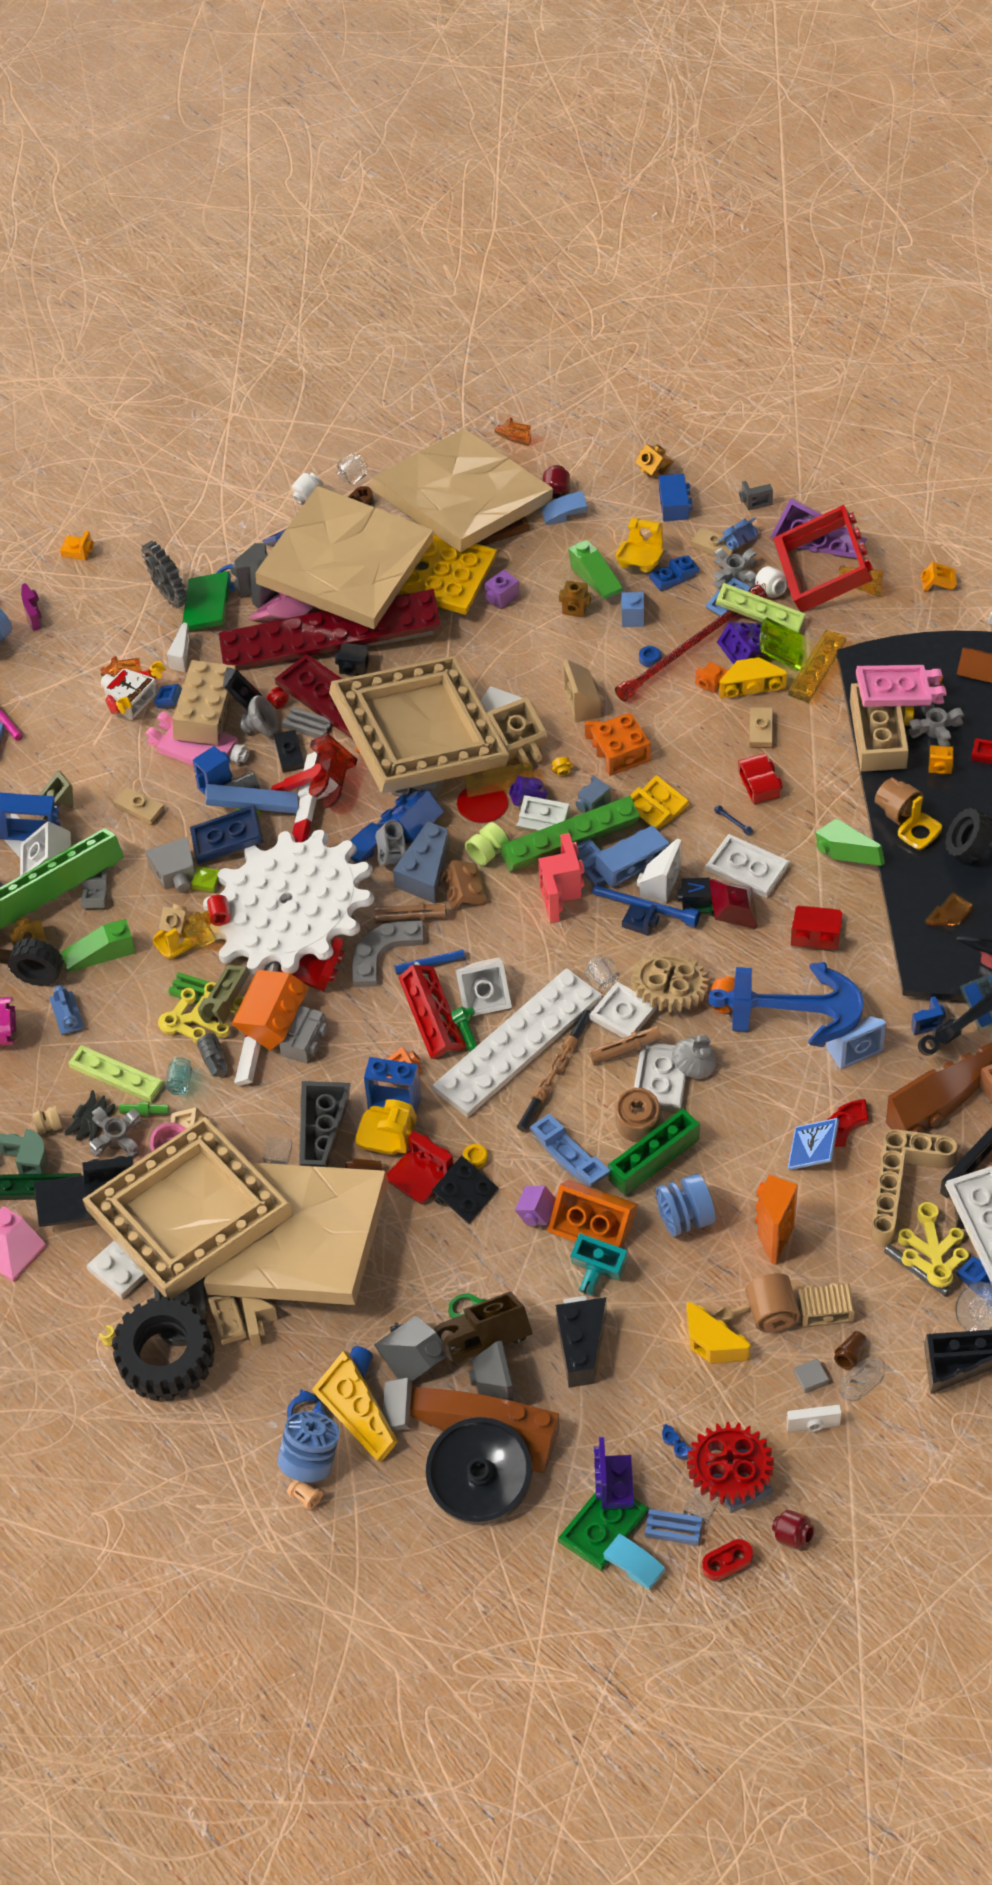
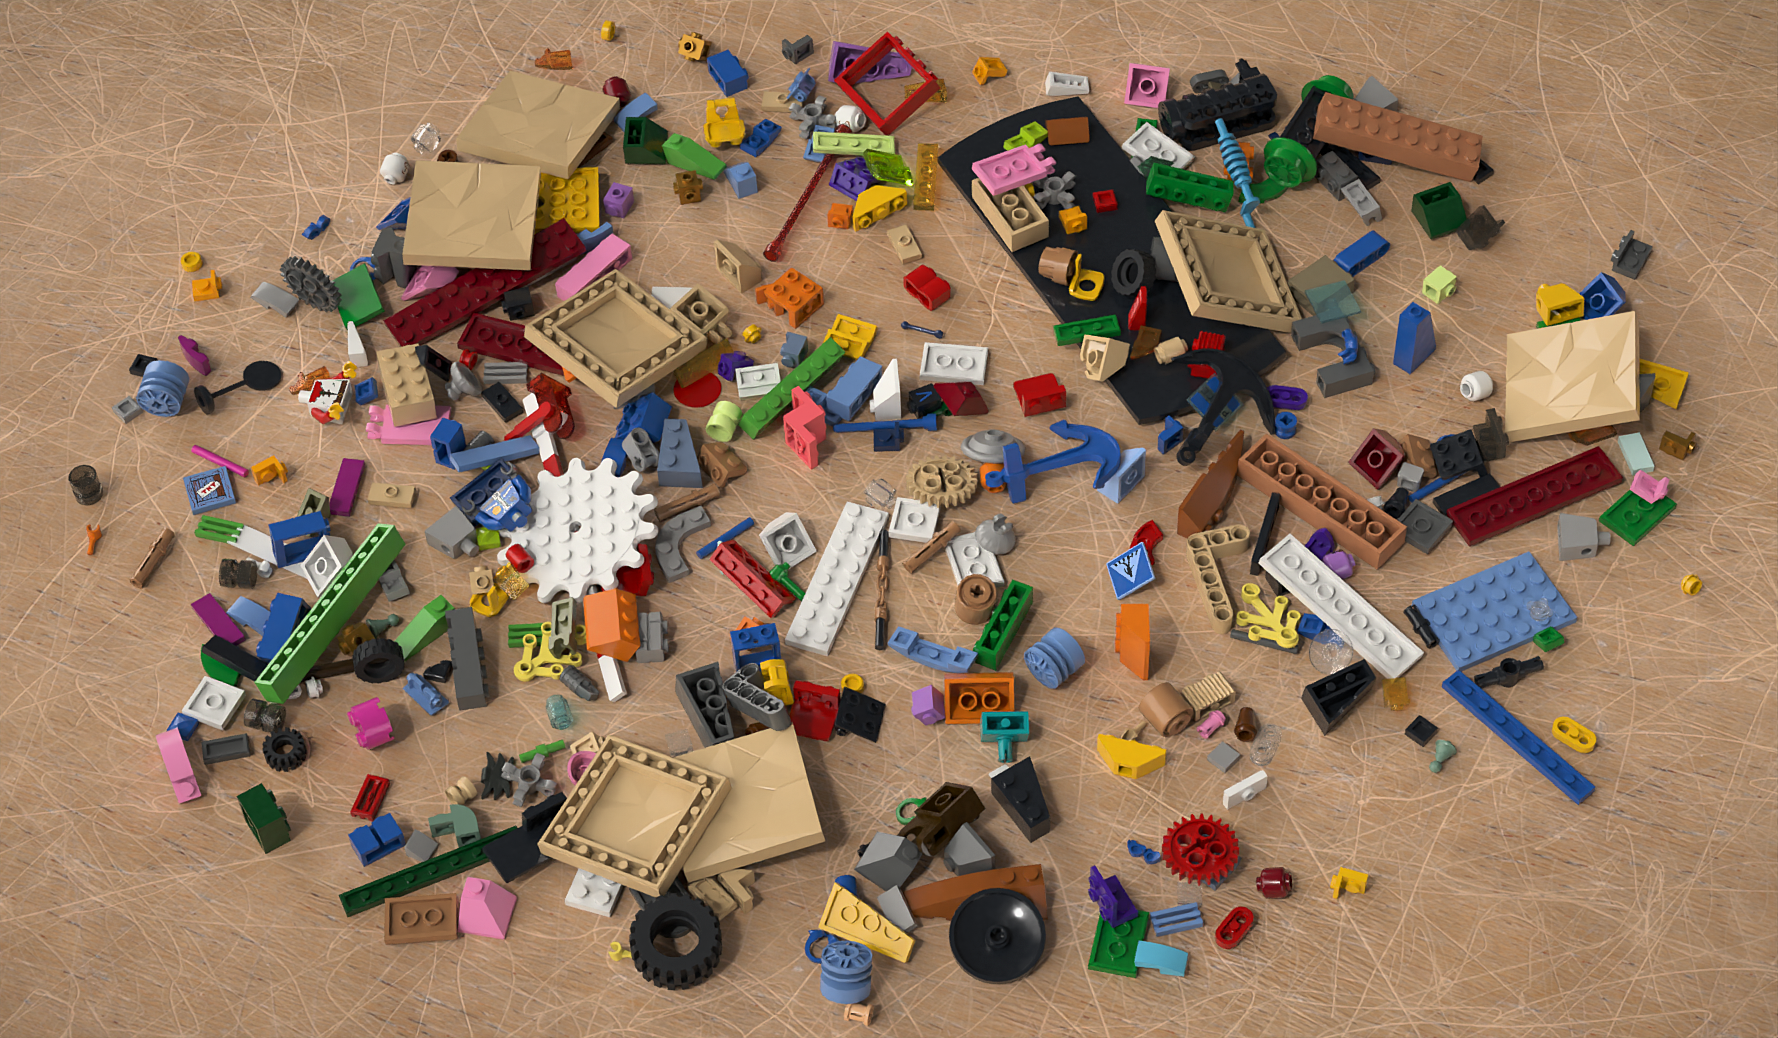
camera: 25 degrees left, 0 degrees up
(38, 740) = (269, 469): none -> light orange bracket
(58, 928) = (378, 626): none -> sand green piece
(77, 517) = (191, 261): none -> yellow tile
(78, 648) = (257, 375): none -> black piece
(92, 994) = (438, 672): none -> black tile
(101, 782) = (346, 487): none -> magenta tile
(116, 1074) = (499, 731): yellowish green tile -> none
(119, 991) = (467, 658): none -> dark grey wedge
(133, 578) = (275, 297): none -> light grey slope
(205, 523) = (315, 229): none -> blue piece
(232, 854) = (507, 506): none -> blue torso
(239, 754) = (461, 418): white plate -> none
(358, 1124) = (747, 695): none -> dark grey beam
(459, 621) = (593, 239): none -> medium blue slope
(462, 641) = (607, 256): none -> bright pink brick
(553, 537) = (643, 141): none -> dark green slope
(580, 418) = (608, 30): none -> yellow tile
(649, 656) = (777, 216): blue tile -> none
(724, 959) = (988, 445): none -> light grey piece
(815, 1335) = (1214, 720): none -> bright pink pin
(848, 844) = (1031, 316): bright green slope -> none
(874, 1560) = (1350, 880): none -> yellow bracket
(896, 878) = (1074, 332): none -> green tile
(896, 911) = (1103, 356): none -> tan slope
(941, 658) = (1030, 135): none -> lime slope
(958, 877) = (1137, 313): none -> red slope
(970, 927) = (1170, 349): none -> tan brick

